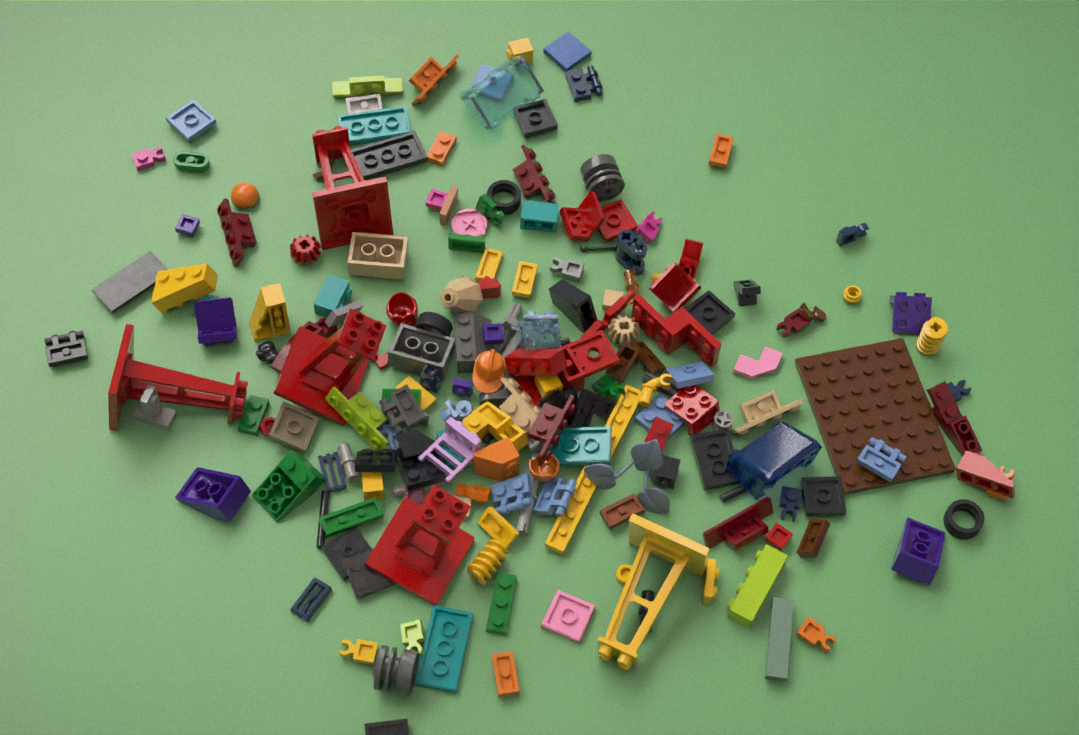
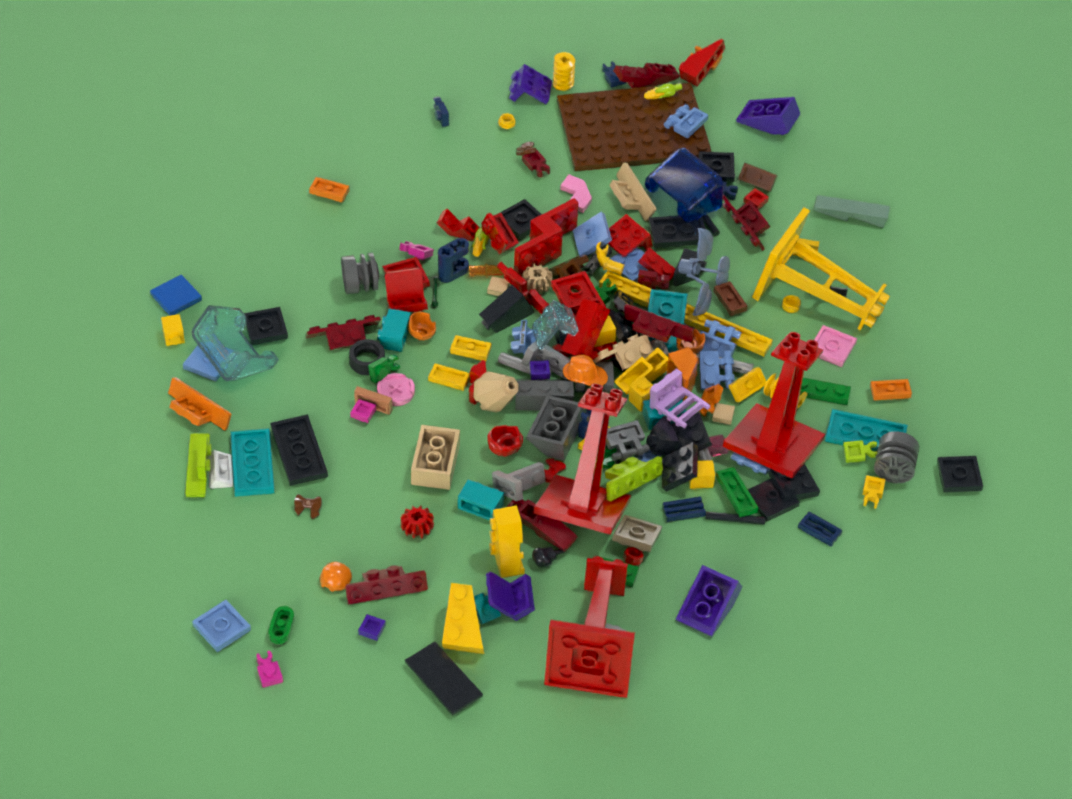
camera: 85 degrees left, 10 degrees down
(67, 352) = (533, 735): plate -> none
(288, 485) = (701, 540): green slope -> none
(348, 462) = (675, 493): light grey pin -> none
(350, 207) = (392, 477): red piece -> none
(435, 323) = (528, 413): black tyre -> none
(441, 148) = (291, 405): orange plate -> none
(459, 412) = (632, 405): medium blue hips -> none
(466, 242) = (421, 388): green plate -> none
(545, 235) = (421, 326): none -> orange hair
(570, 269) = (460, 313): flat silver plate -> none
(578, 83) = (222, 290): plate -> none
(635, 430) = (651, 280): none -> dark red plate
(722, 417) = (641, 218): light grey wheel -> none
(746, 292) = (498, 188): black slope -> none
(757, 586) = (818, 223): lime brick -> none
(813, 633) = (847, 189): orange plate -> none
(926, 437) = (665, 90): none -> lime piece
(970, 507) = (739, 93): black tyre -> none

